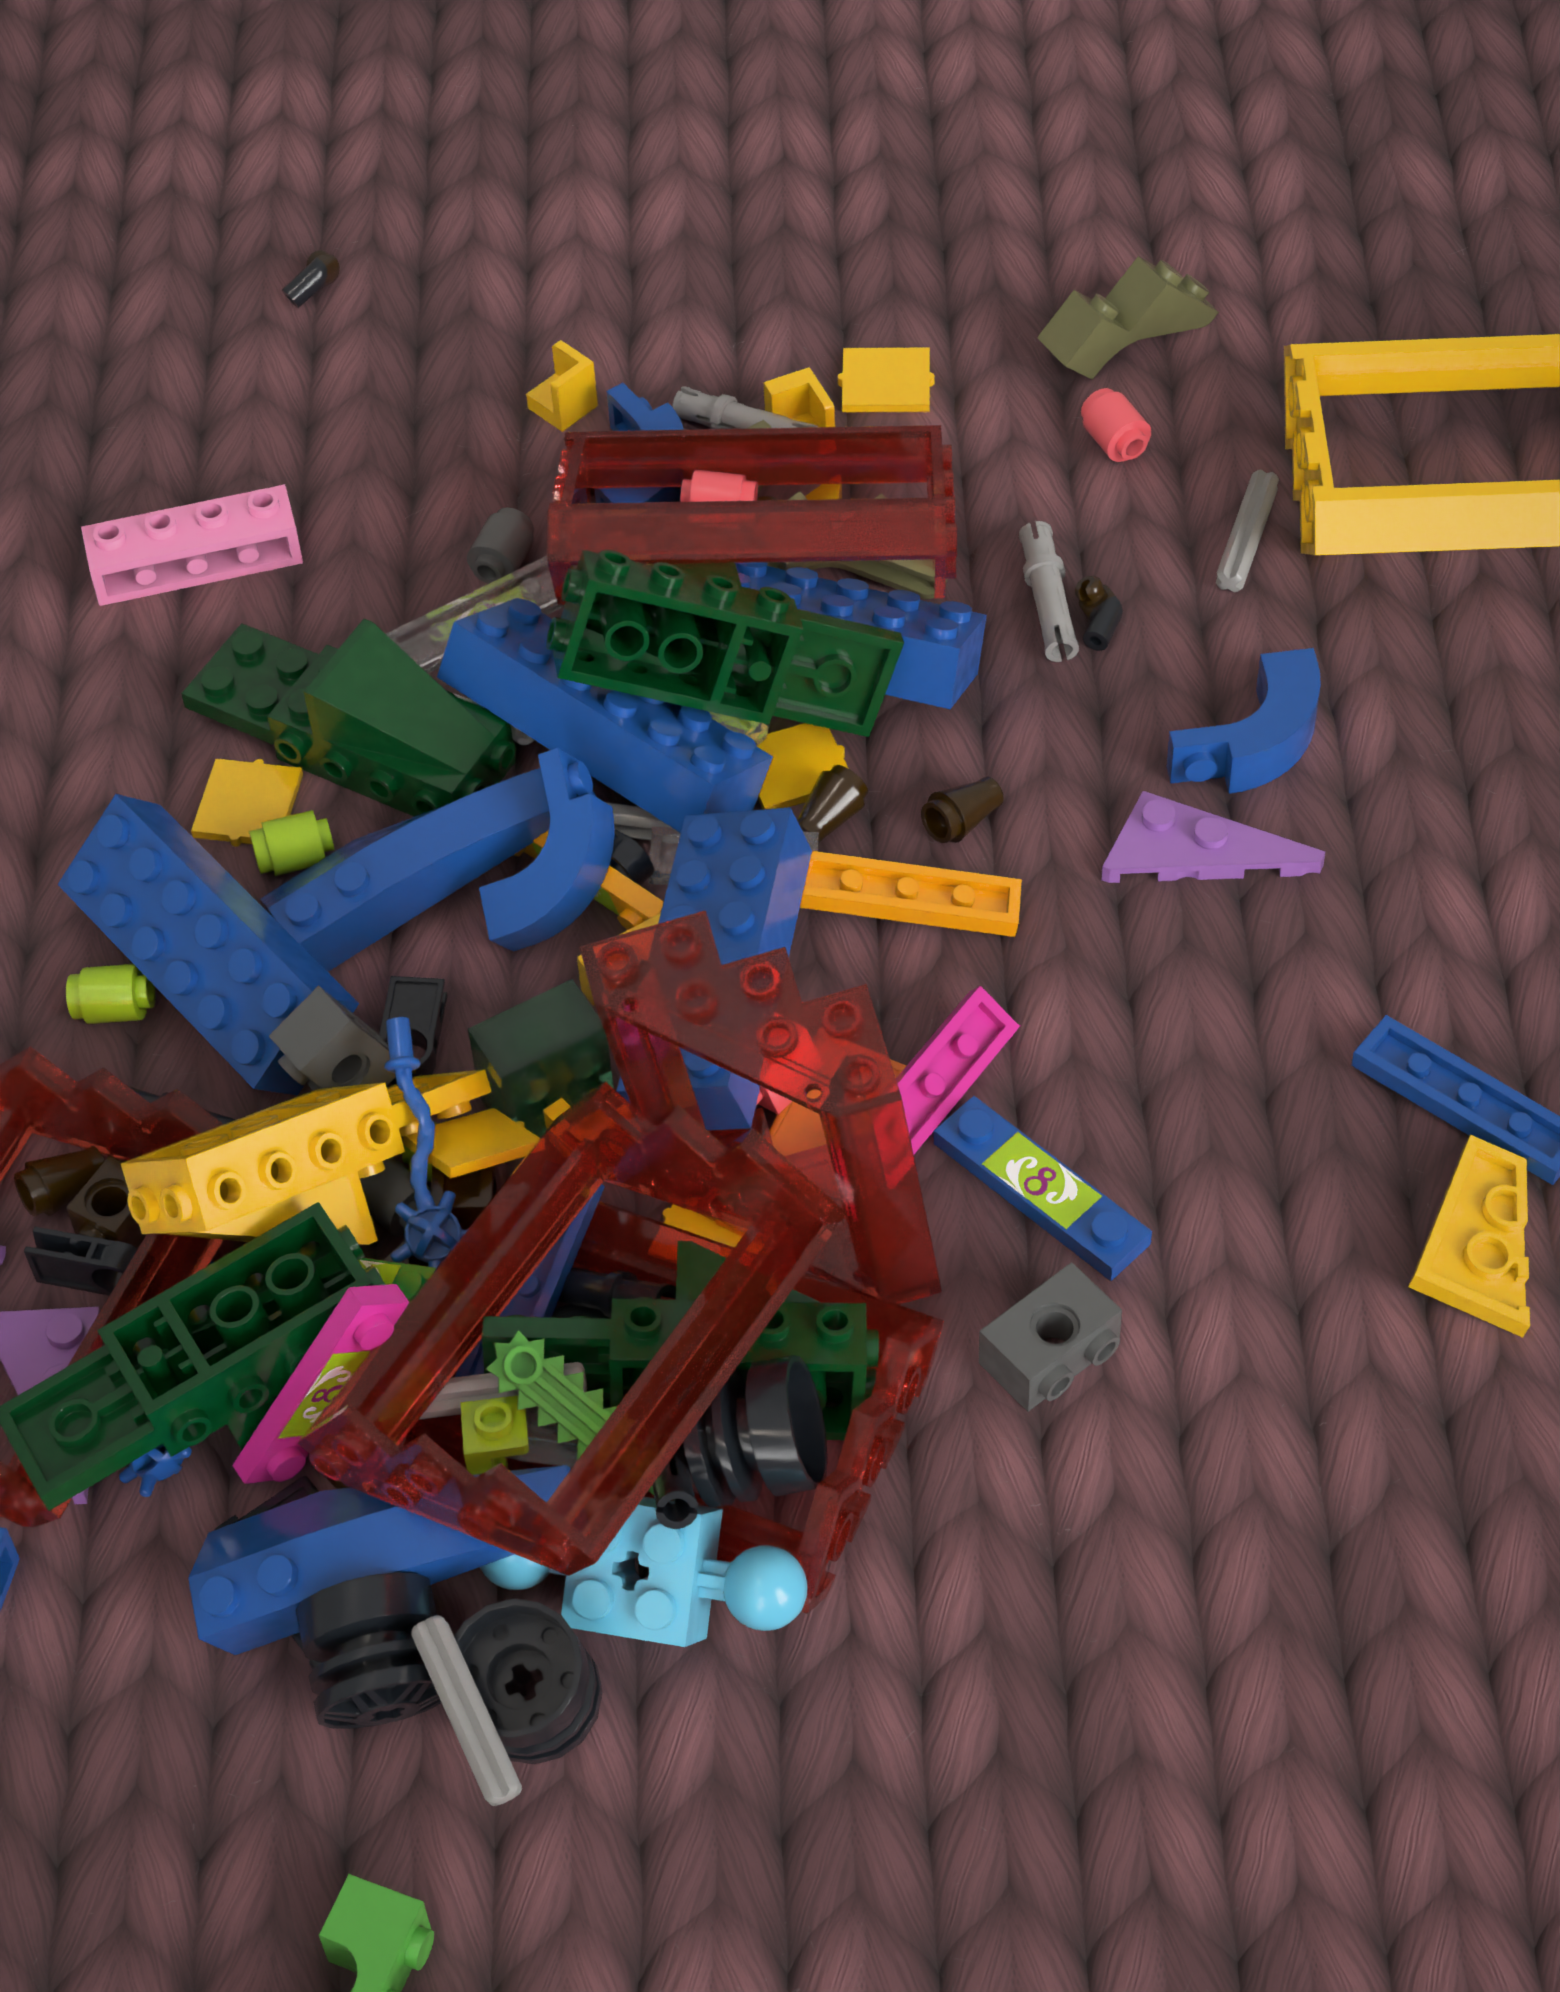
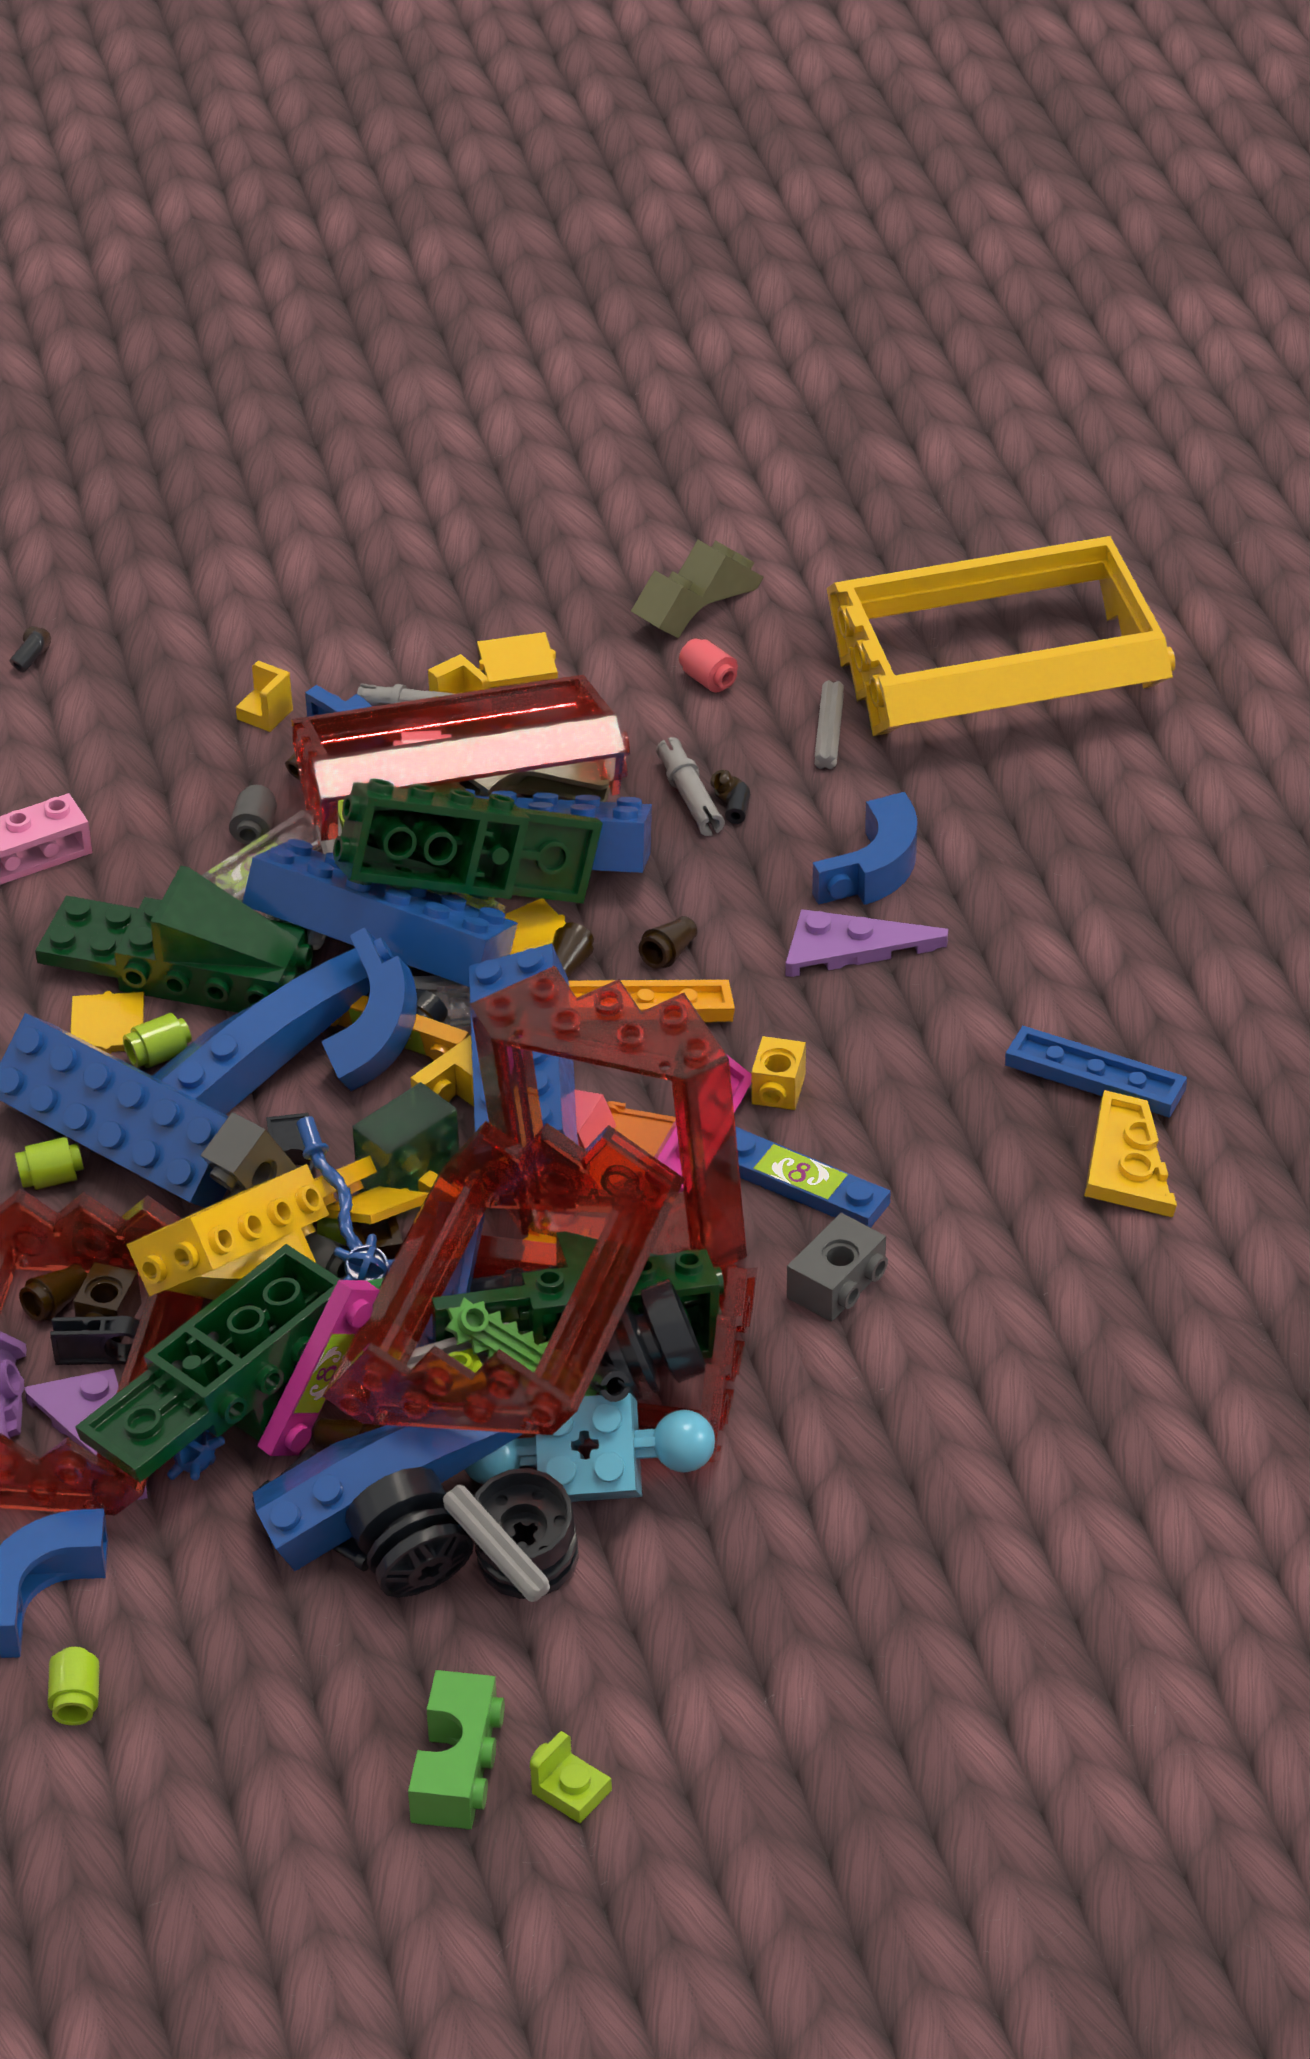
camera: 15 degrees left, 10 degrees down
(1055, 1010) = (778, 1073): none -> yellow brick

